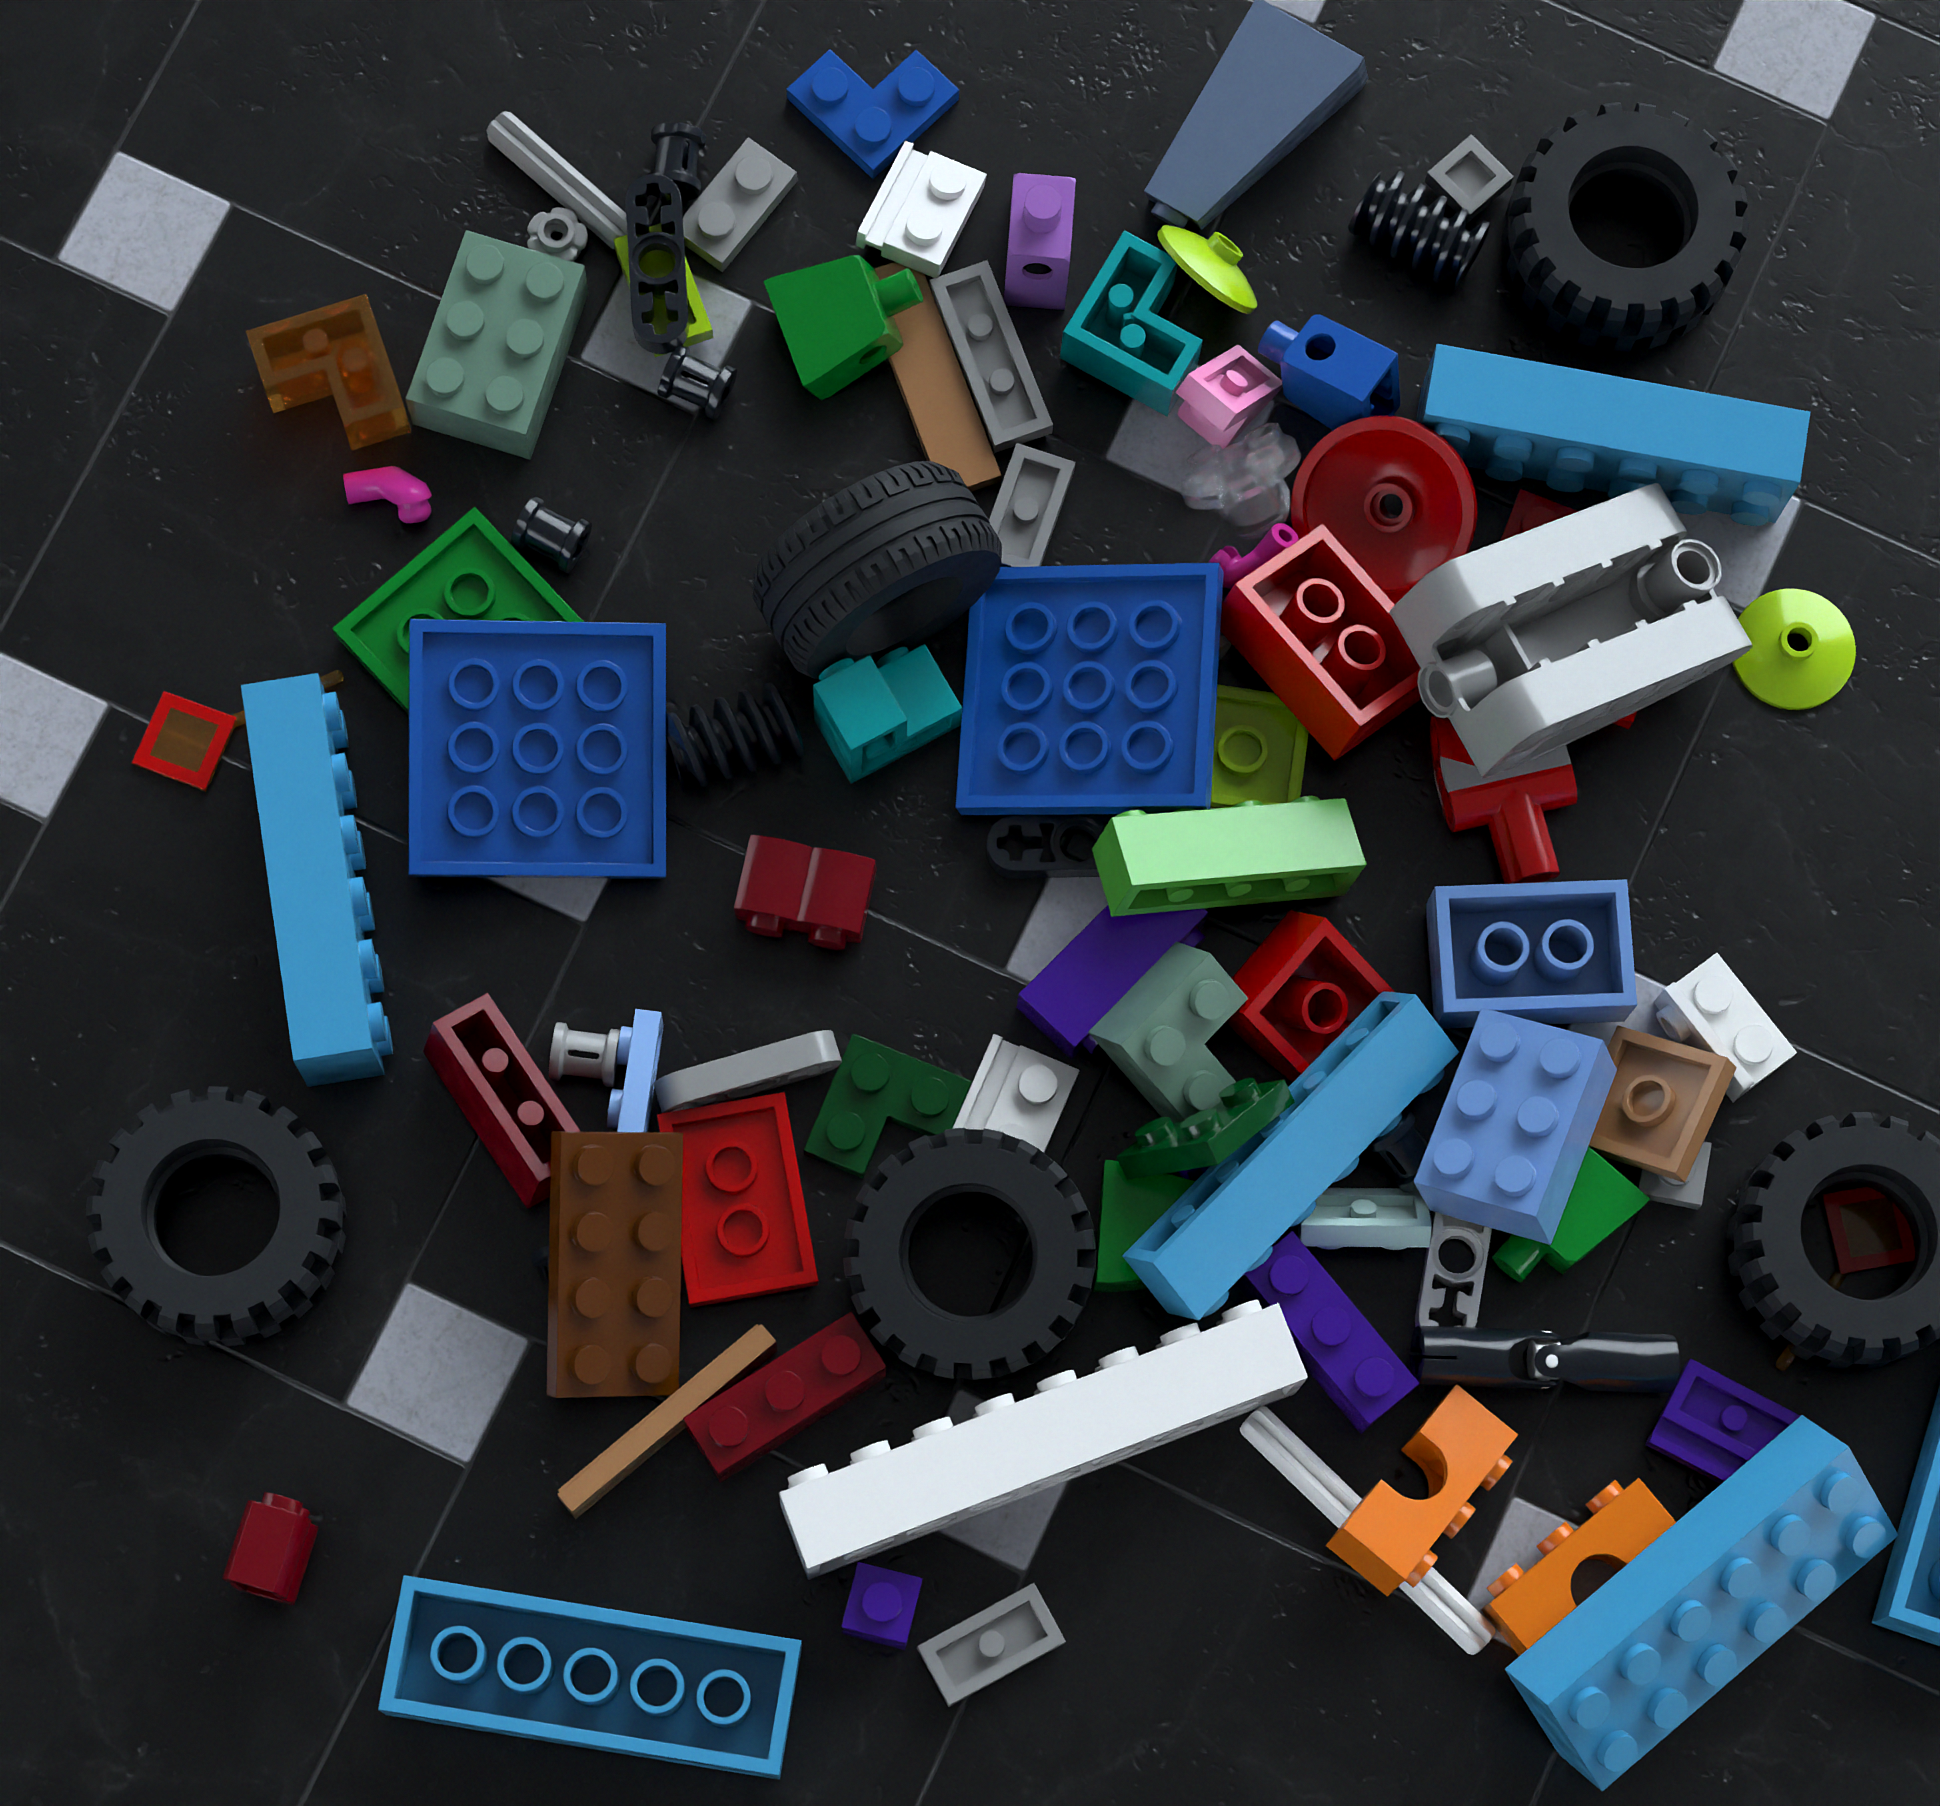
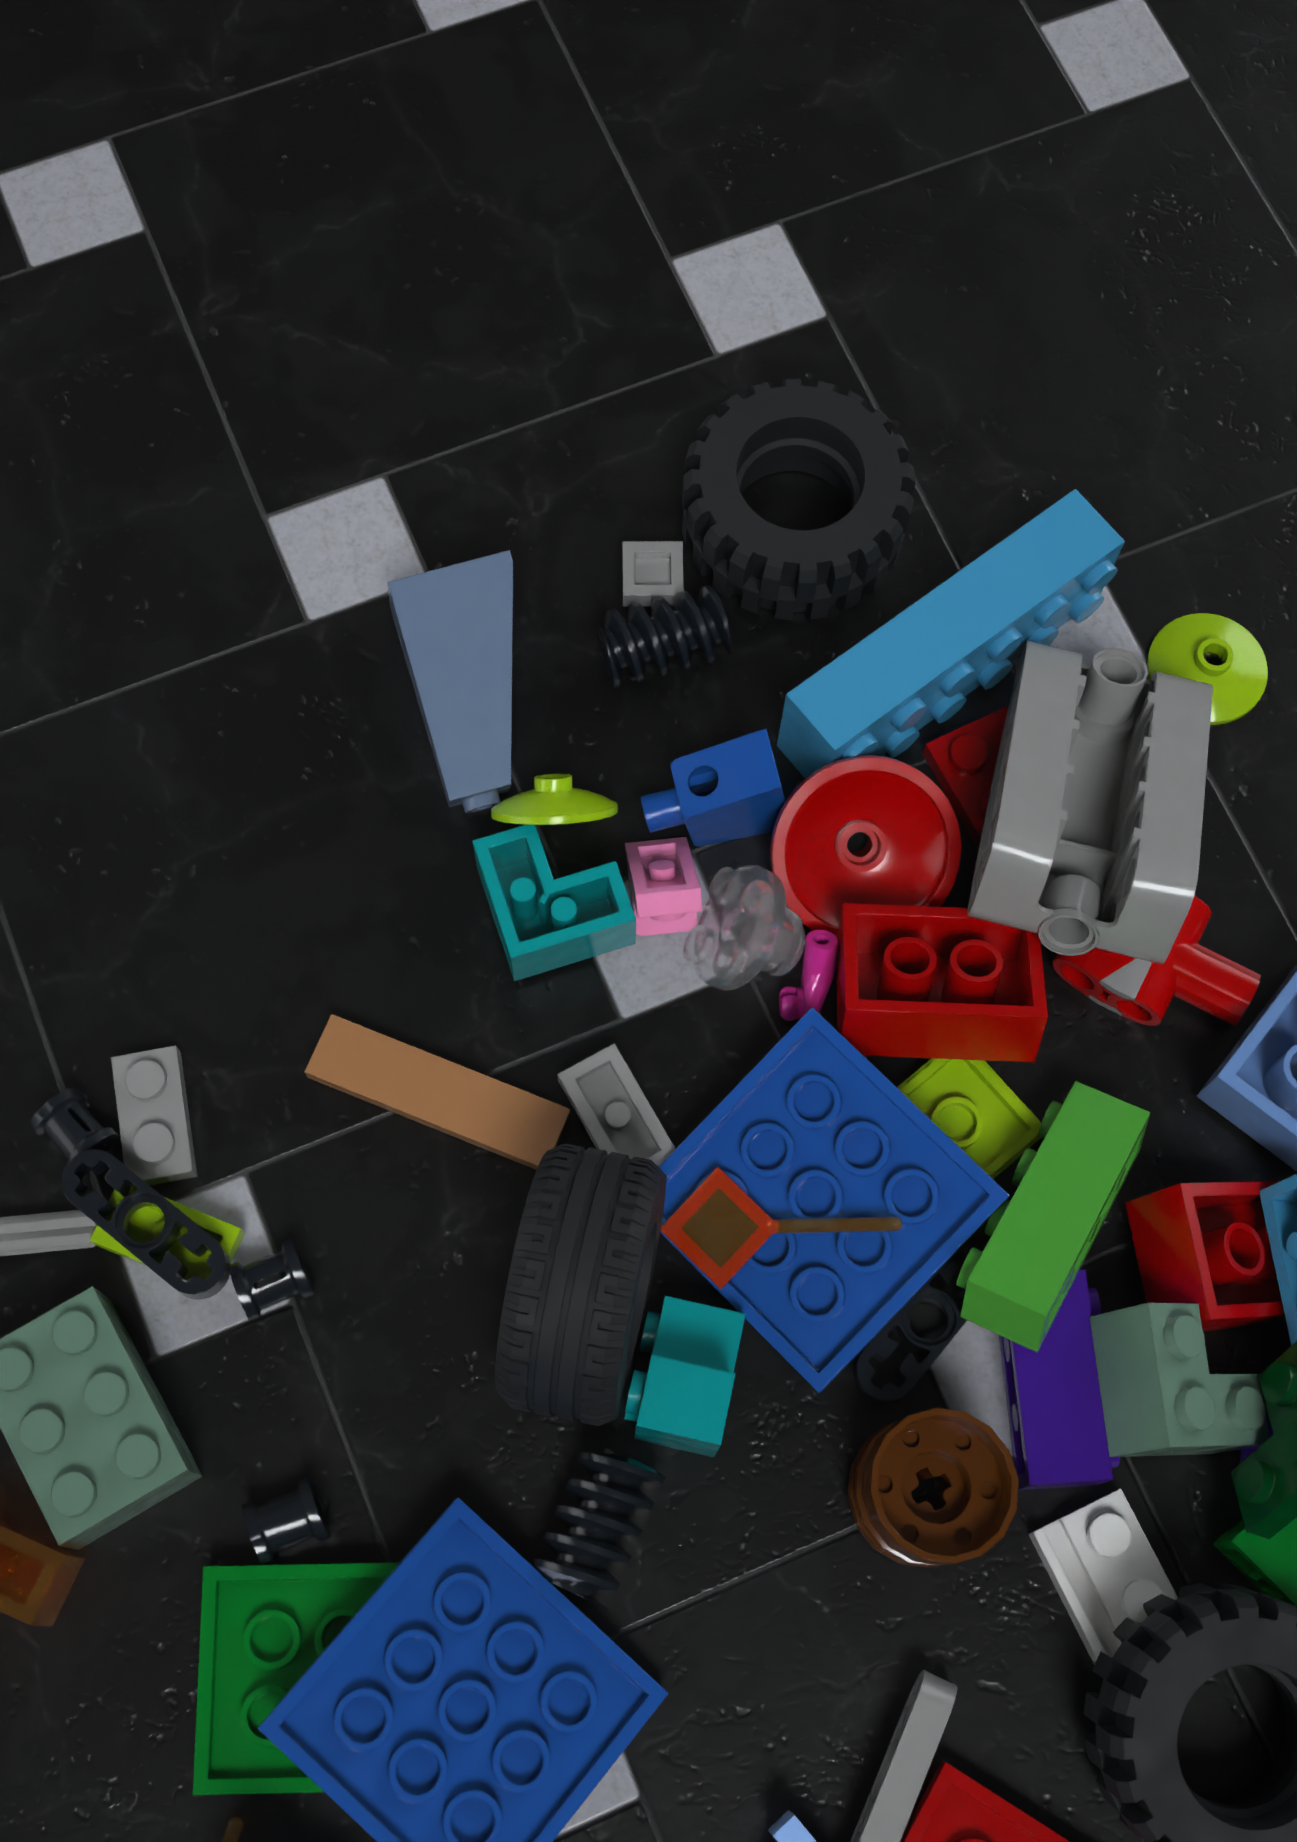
camera: 45 degrees left, 5 degrees down
(393, 485) = (116, 1618): dark pink arm -> none
(563, 221) = (29, 1268): light grey plate -> none
(804, 891) = (782, 1584): dark red brick -> none
(840, 319) = (330, 1120): green torso -> none
(868, 121) = (189, 955): blue plate -> none
(879, 1087) = (997, 1679): dark green plate -> none
(921, 210) = (299, 979): white plate -> none
(963, 892) = (972, 1485): none -> reddish brown wheel
(991, 356) = (467, 1031): light grey plate -> none
(1012, 646) = (725, 1227): none -> clear orange piece
(1039, 234) = (407, 906): medium lavender torso -> none

